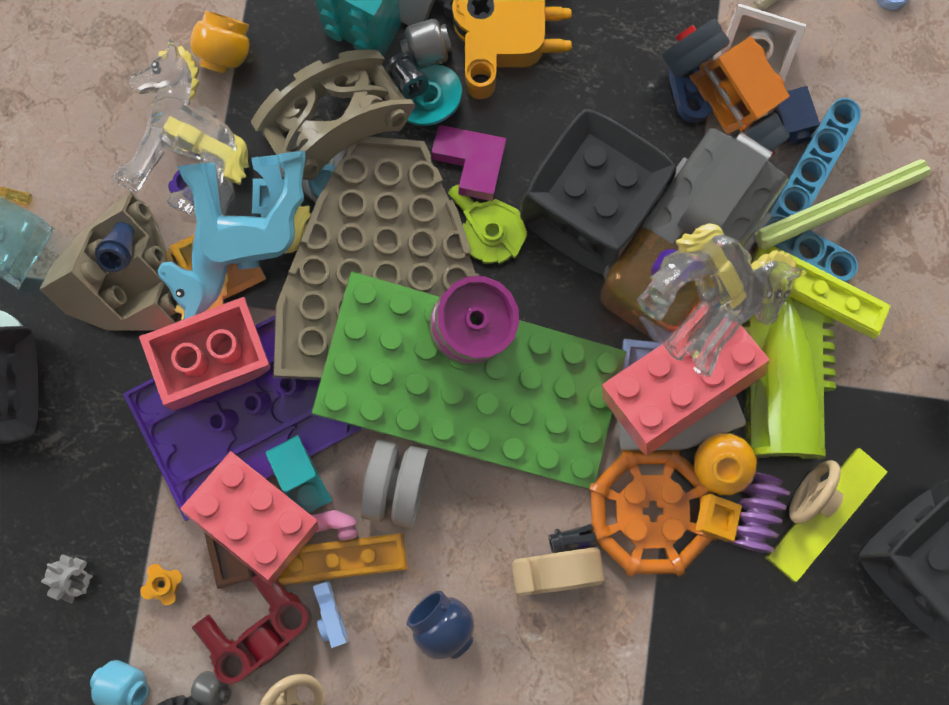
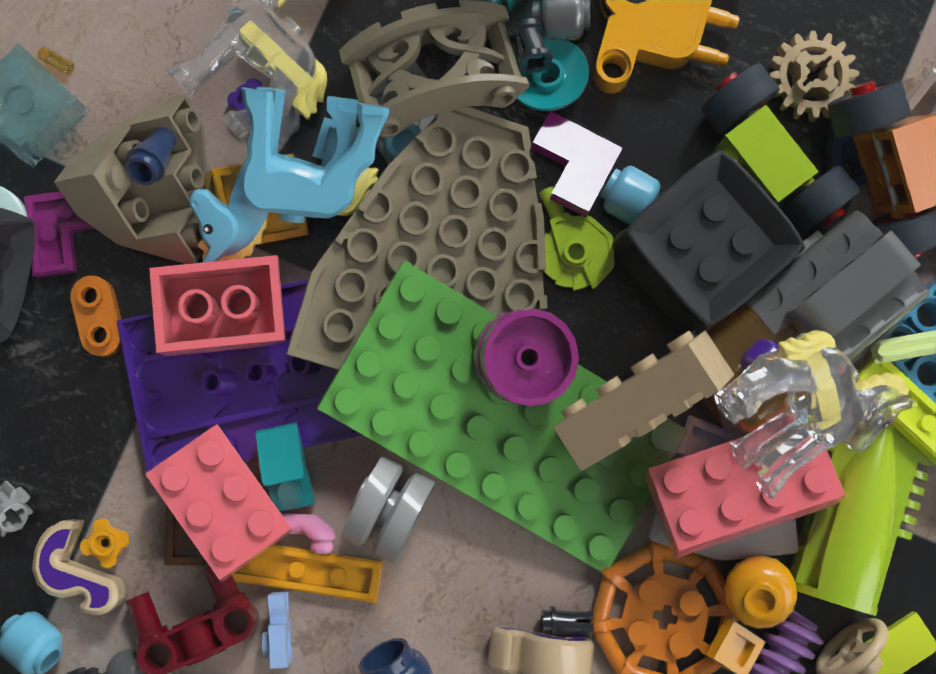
camera: 20 degrees right, 5 degrees up
(49, 330) = (54, 233): none -> magenta tile
(104, 394) = (96, 315): none -> orange plate
(133, 623) = (67, 578): none -> tan animal
(519, 171) = (629, 193): none -> medium azure head
(580, 327) = (644, 400): none -> tan wedge
(603, 89) = (771, 154): none -> brick
(635, 26) = (801, 63): none -> tan gear

